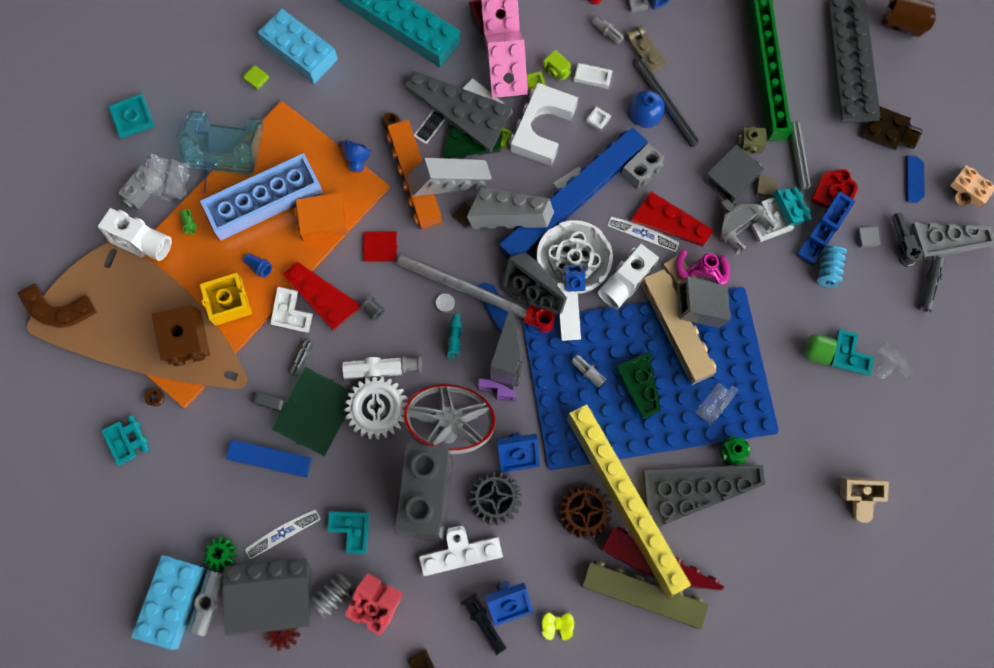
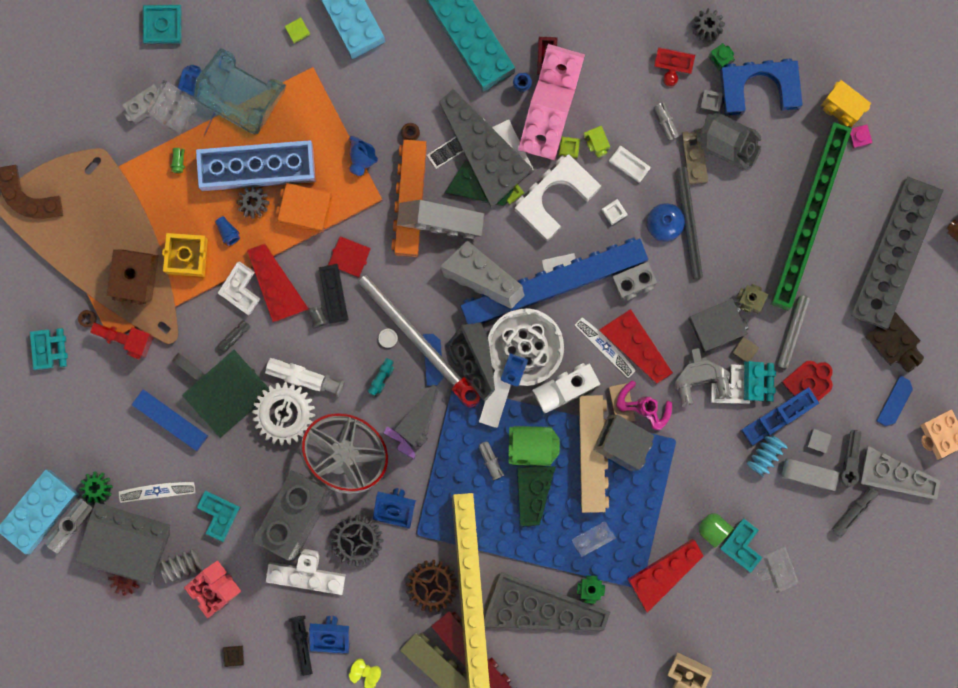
camera: 25 degrees right, 10 degrees up
(134, 235) = (127, 161): white brick -> none
(171, 150) = (188, 79): none -> blue bracket
(208, 397) = (136, 343): none -> red brick
(279, 230) = (249, 209): none -> dark grey gear
(379, 283) = (333, 293): none -> black tile
(461, 215) = (440, 256): dark brown tile -> none
(471, 42) = (522, 78): none -> blue cone
(622, 339) = (533, 445): none -> bright green cylinder
(670, 21) = (730, 141): none -> dark grey brick
(792, 411) = (661, 576): none -> red wing
(877, 267) = (810, 474): none -> light grey beam

